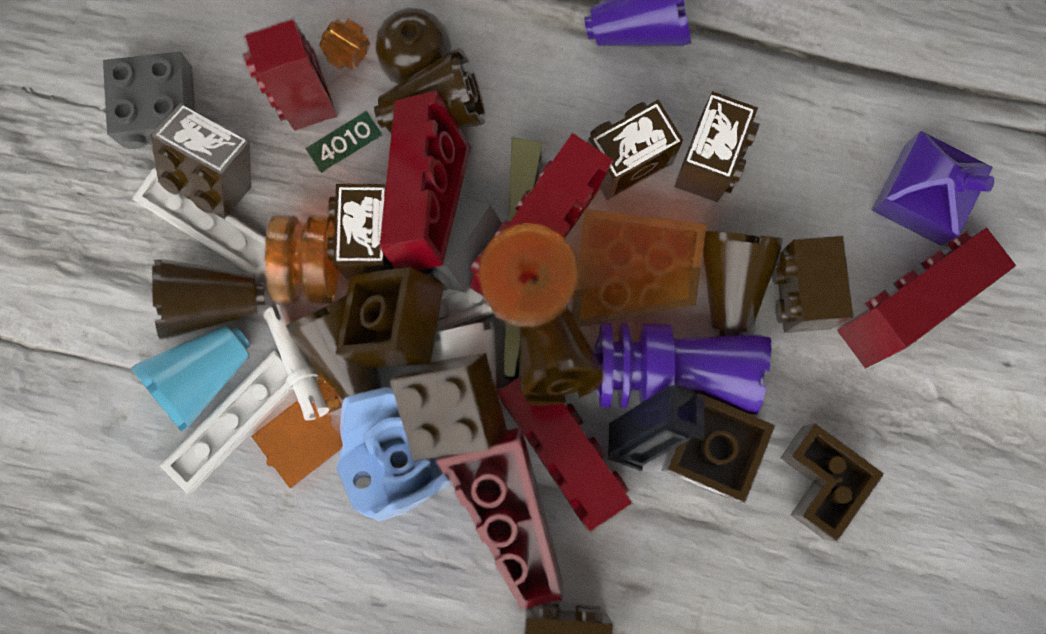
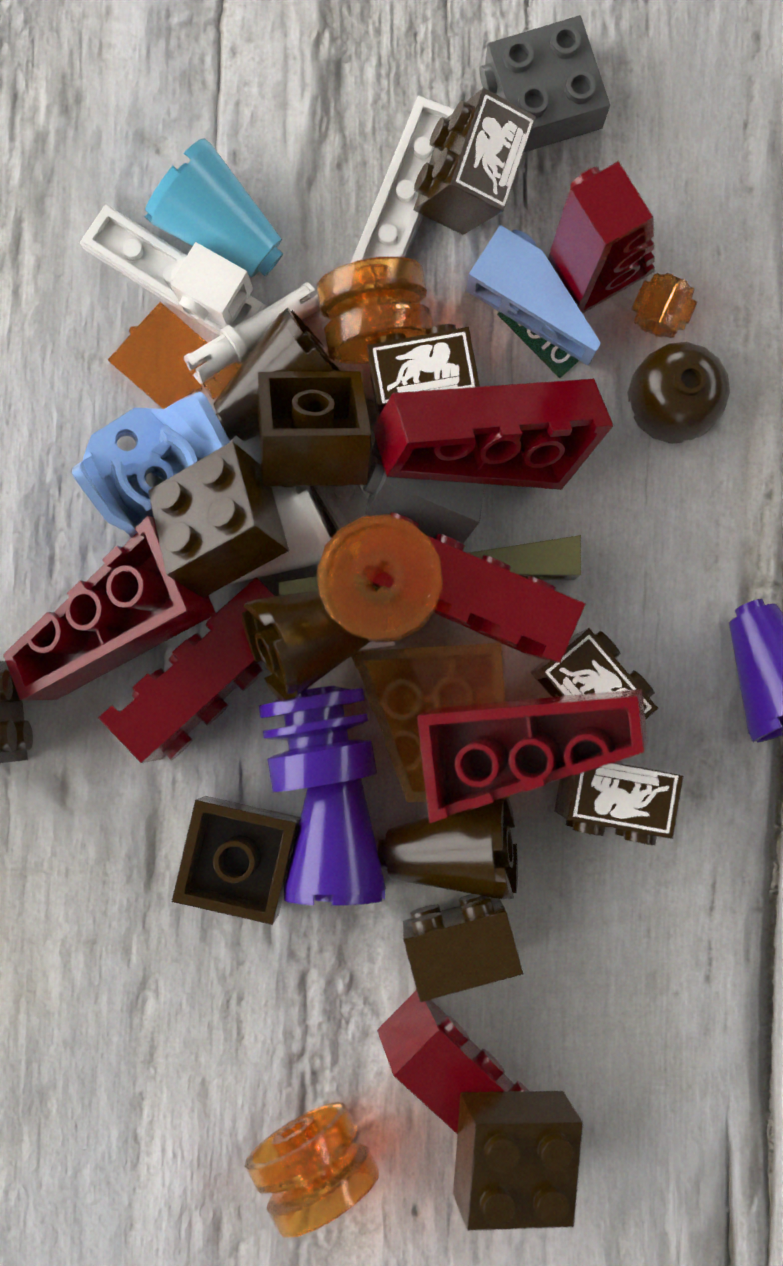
camera: 85 degrees right, 5 degrees up
(200, 296) = (308, 199): dark brown cone -> none
(251, 388) = (209, 286): none -> white brick
(309, 142) = (525, 287): none -> light blue slope
(453, 83) = (634, 445): dark brown cone -> none
(654, 428) = (242, 777): black window -> none
(670, 199) = (519, 745): none -> dark red wedge
(839, 480) = (215, 1014): dark brown brick -> none
(933, 188) = (624, 1084): dark purple piece -> none
(968, 430) = (312, 1170): none -> clear orange wheel
(981, 267) = (517, 1160): none -> dark brown brick

